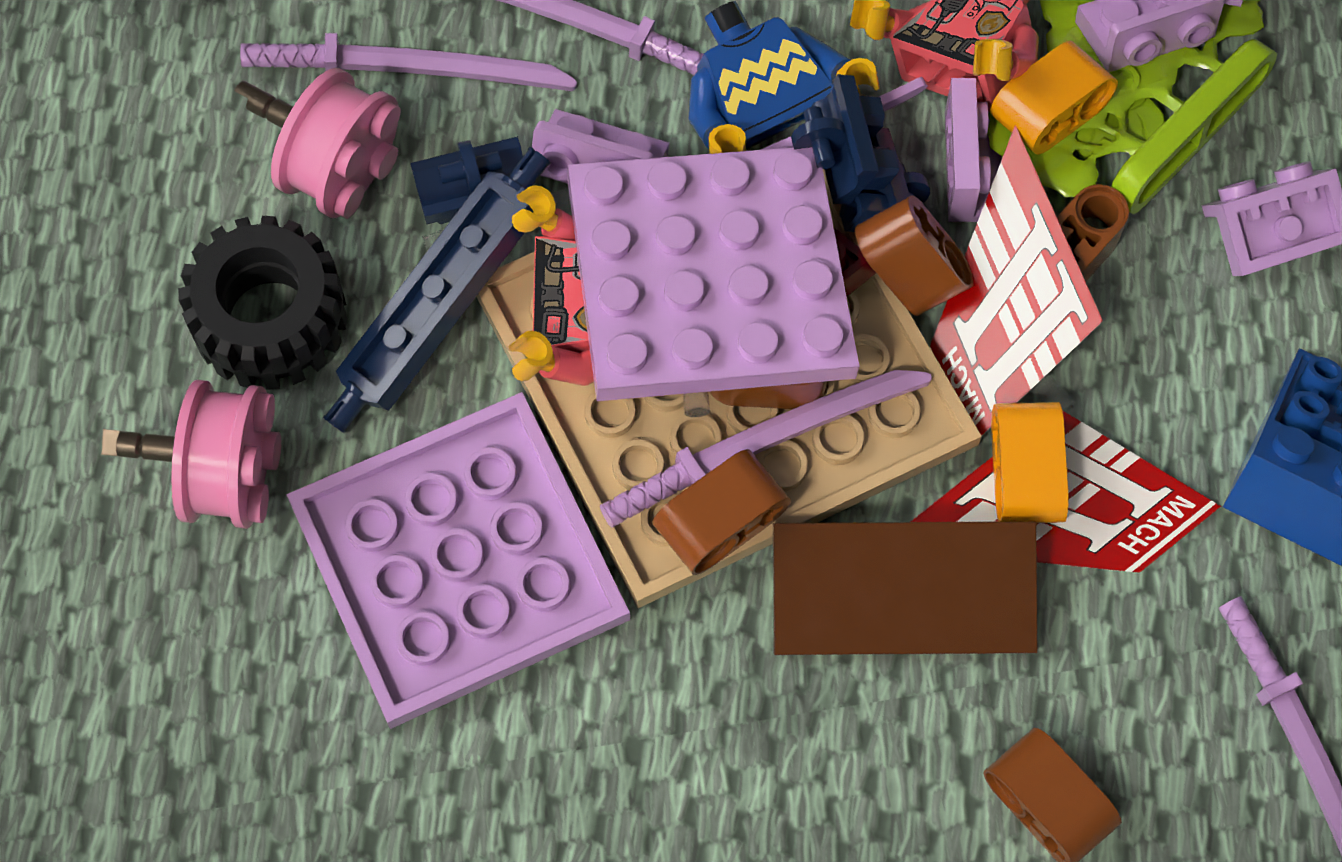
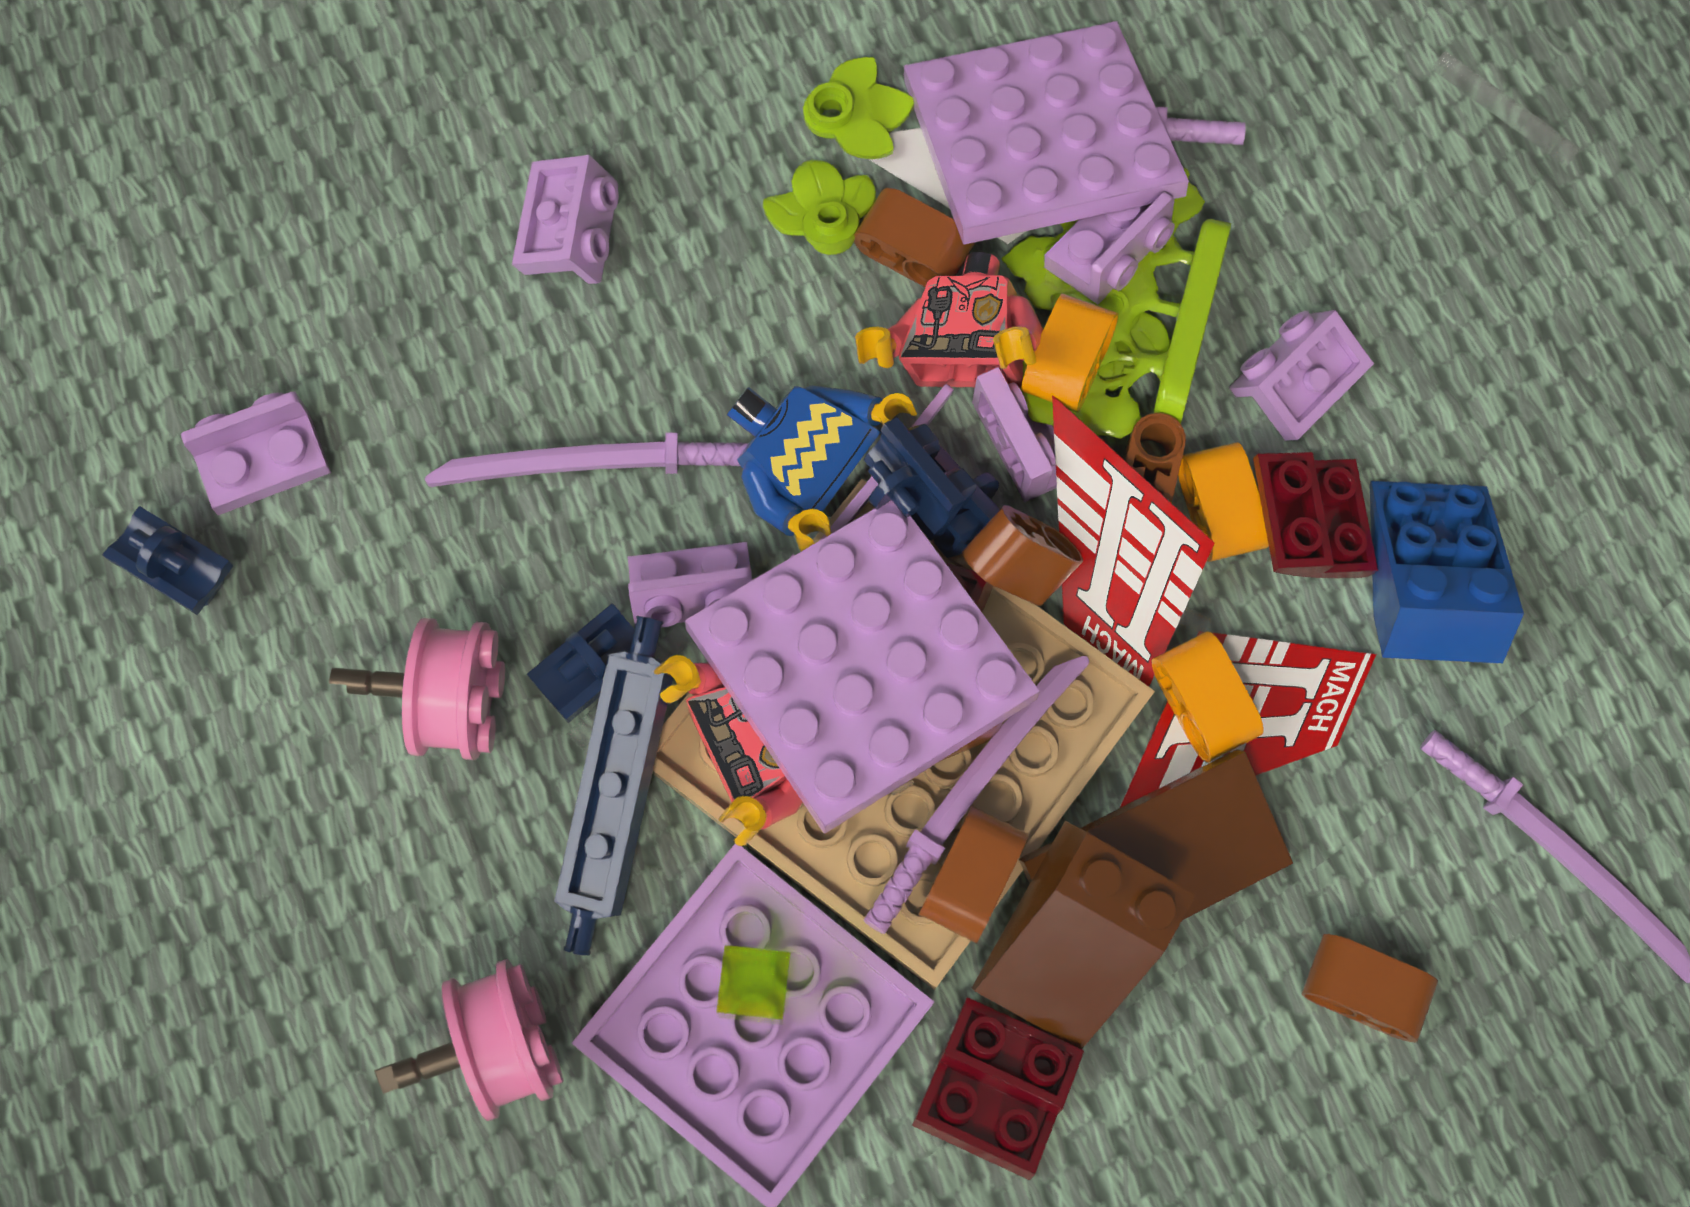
camera: 30 degrees left, 5 degrees up
(252, 258) = (418, 836): black tyre -> none
(406, 61) = (459, 572): lavender sword -> none
(469, 511) = (753, 984): none -> clear neon green brick
(651, 721) = (998, 1088): none -> dark red slope
(792, 614) = (1081, 937): none -> reddish brown slope
(1139, 300) = (1224, 500): none -> light orange beam
(1220, 349) = (1314, 516): none -> dark red slope

